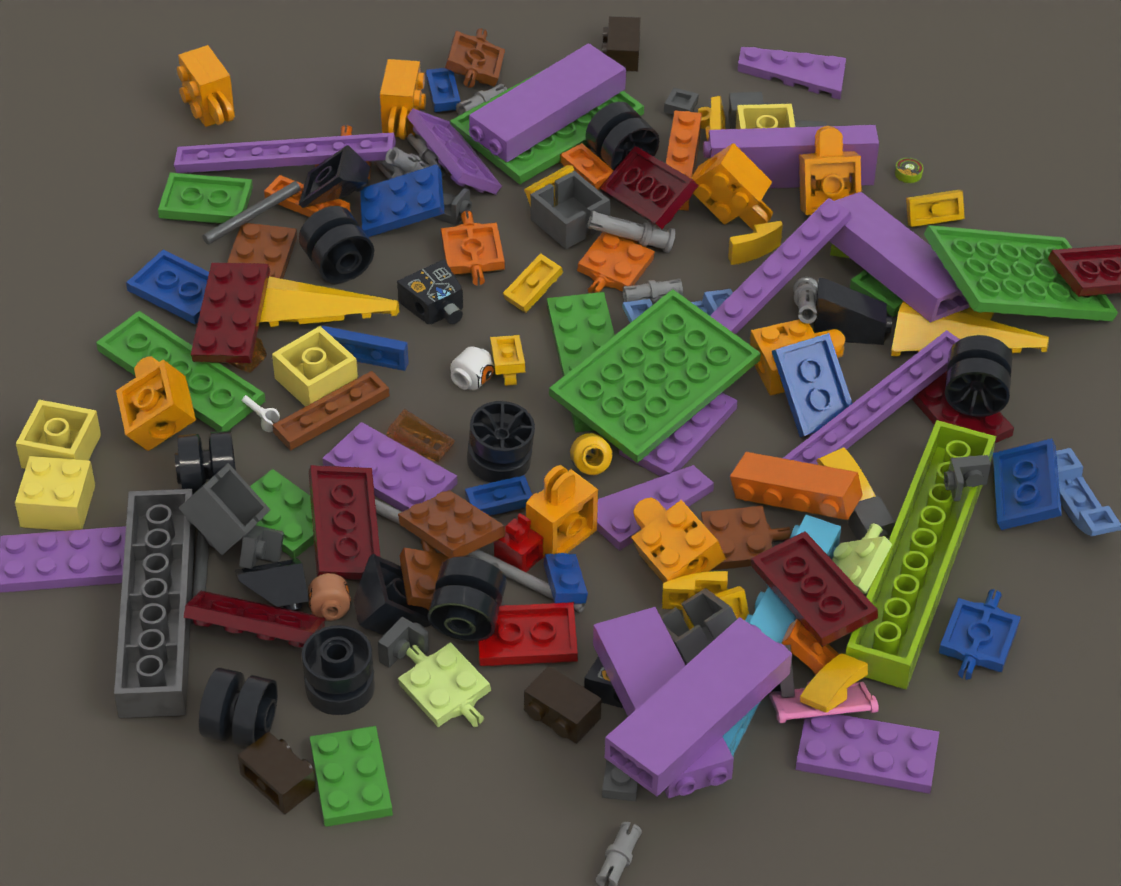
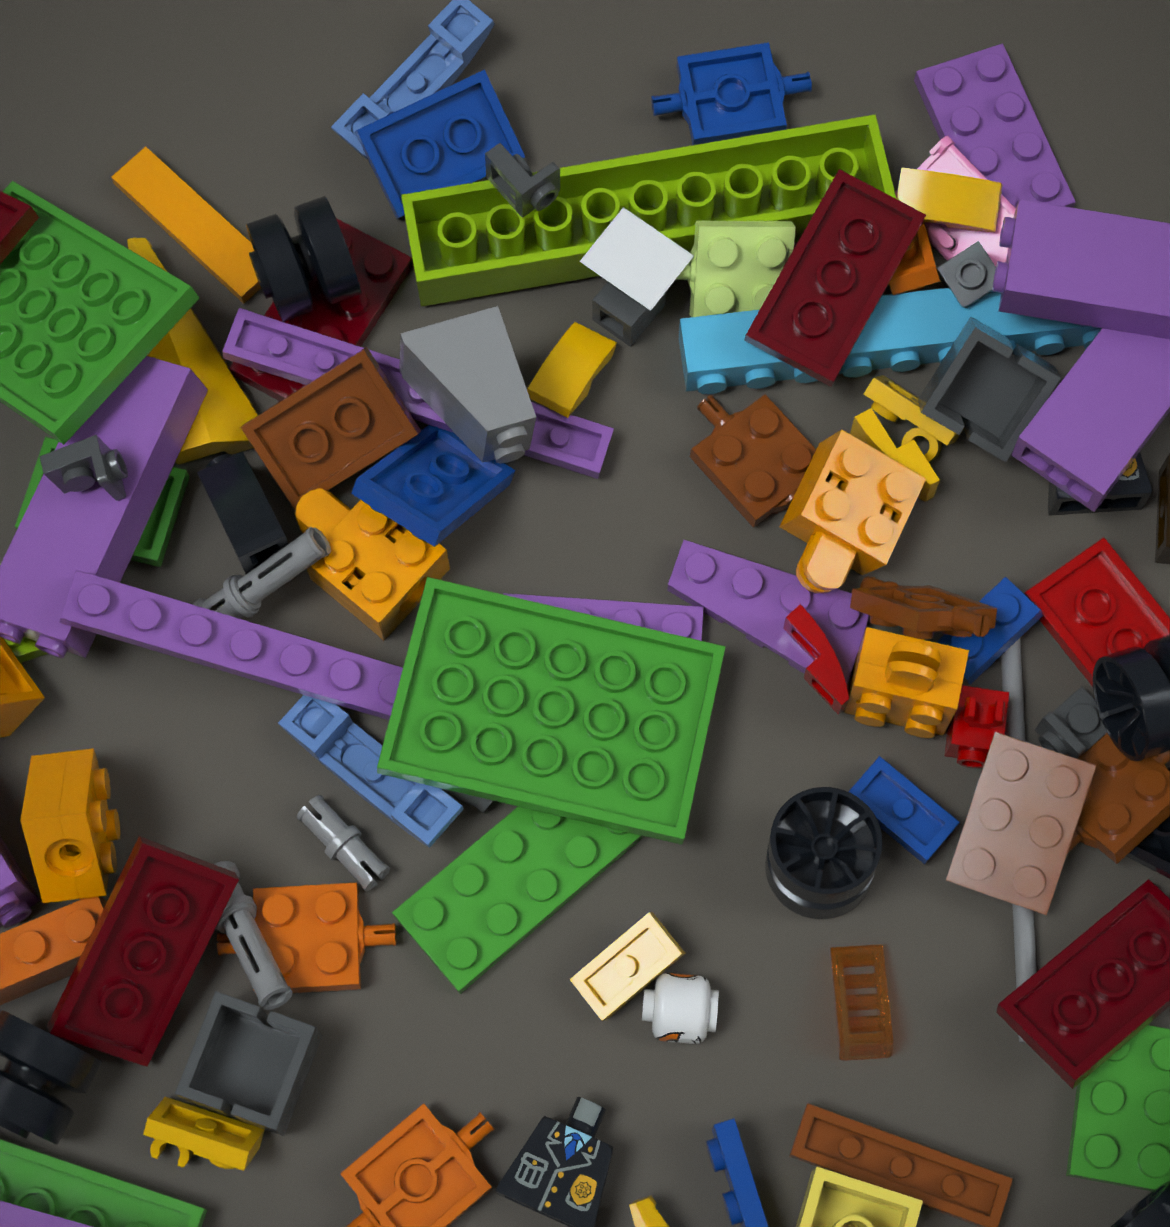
camera: 120 degrees left, 25 degrees up
(398, 473) = (947, 1005): medium lavender plate -> none
(533, 283) = (447, 1025): yellow plate -> none
(587, 165) = (108, 1114): orange plate -> none
(594, 535) = (922, 609): none -> dark orange plate
(598, 460) = (750, 722): yellow head -> none
(612, 491) = (825, 671): none -> red slope
(751, 246) = (140, 738): yellow slope -> none
(796, 485) = (645, 409): orange brick -> none
(850, 403) = (472, 382): none -> light grey slope
(874, 360) = (331, 427): none -> dark orange plate
(887, 514) = (636, 258): none -> white sticker
(900, 239) = (83, 464): none -> dark grey bracket
(1057, 374) = (189, 221): none -> light orange tile

